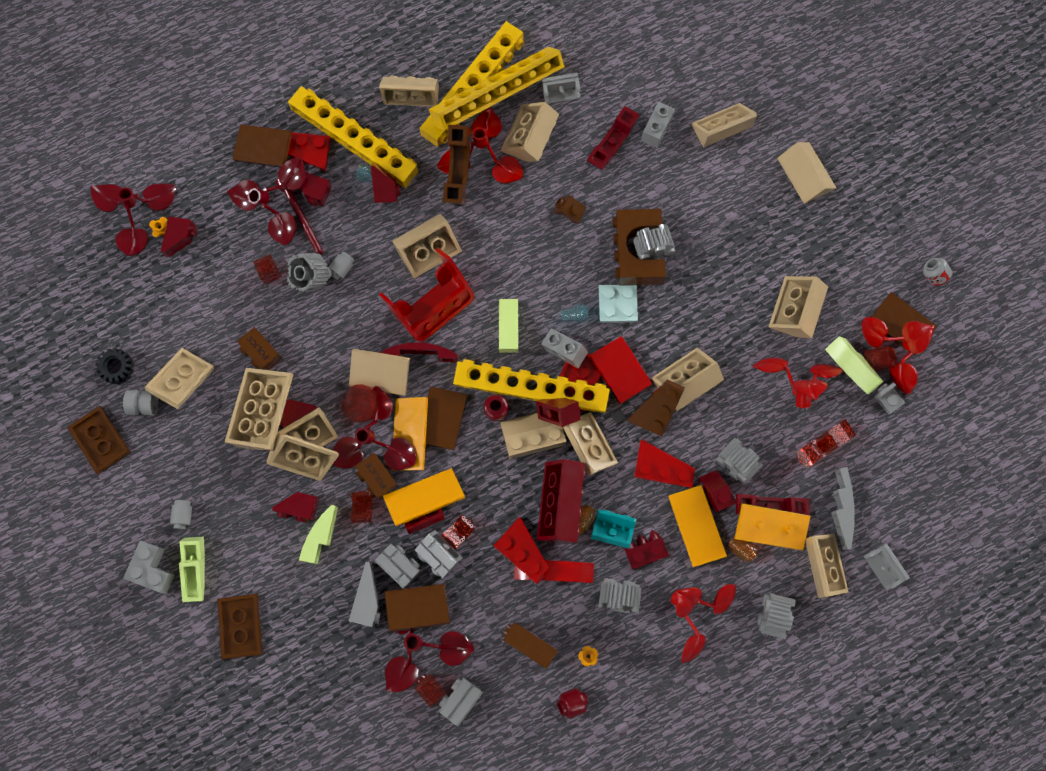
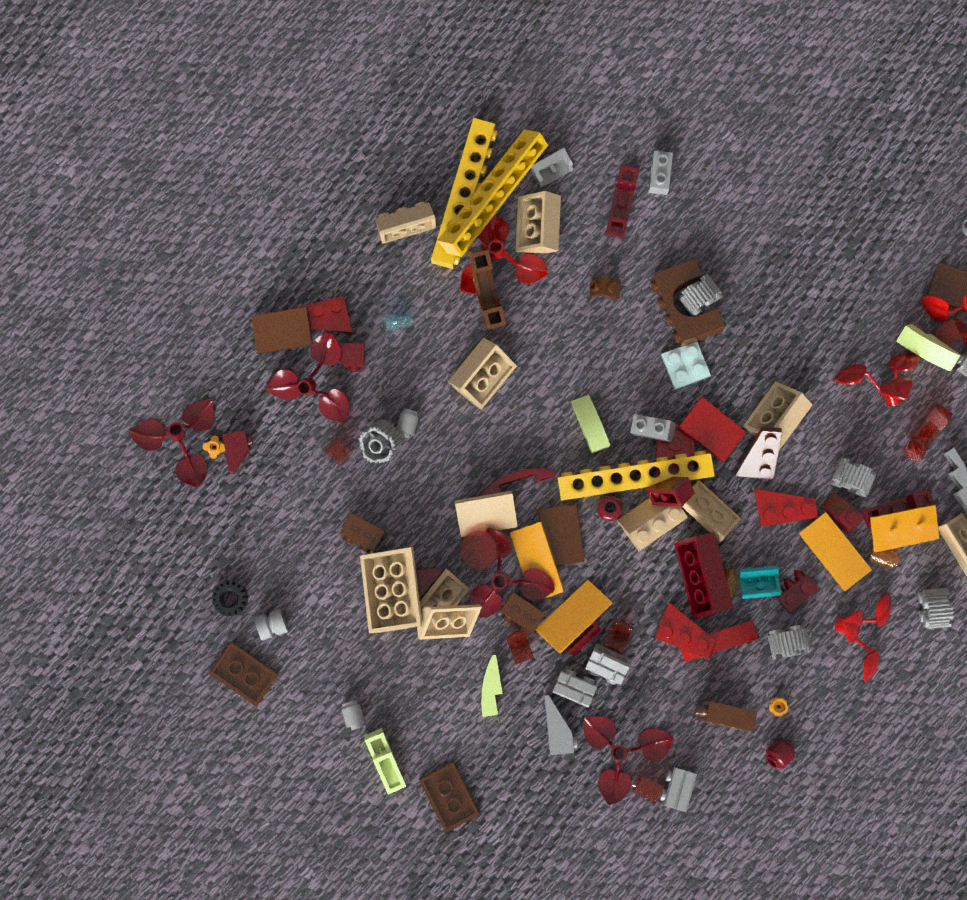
camera: 20 degrees left, 5 degrees up
(144, 568) = (341, 779): light grey brick -> none
(179, 378) = (298, 588): tan tile -> none
(298, 505) = (460, 666): dark red slope -> none
(301, 217) = (348, 388): dark red piece -> none
(306, 97) = (305, 264): yellow brick -> none
(383, 185) = (419, 329): dark red slope -> none
(417, 608) = (607, 720): reddish brown tile -> none
(435, 306) = (514, 427): red windscreen -> none
(575, 313) = (649, 389): clear light blue cone -> none
(724, 124) = (722, 147): tan slope -> none
(798, 306) = (857, 307): tan slope -> none
(806, 172) = (819, 169): tan slope -> none

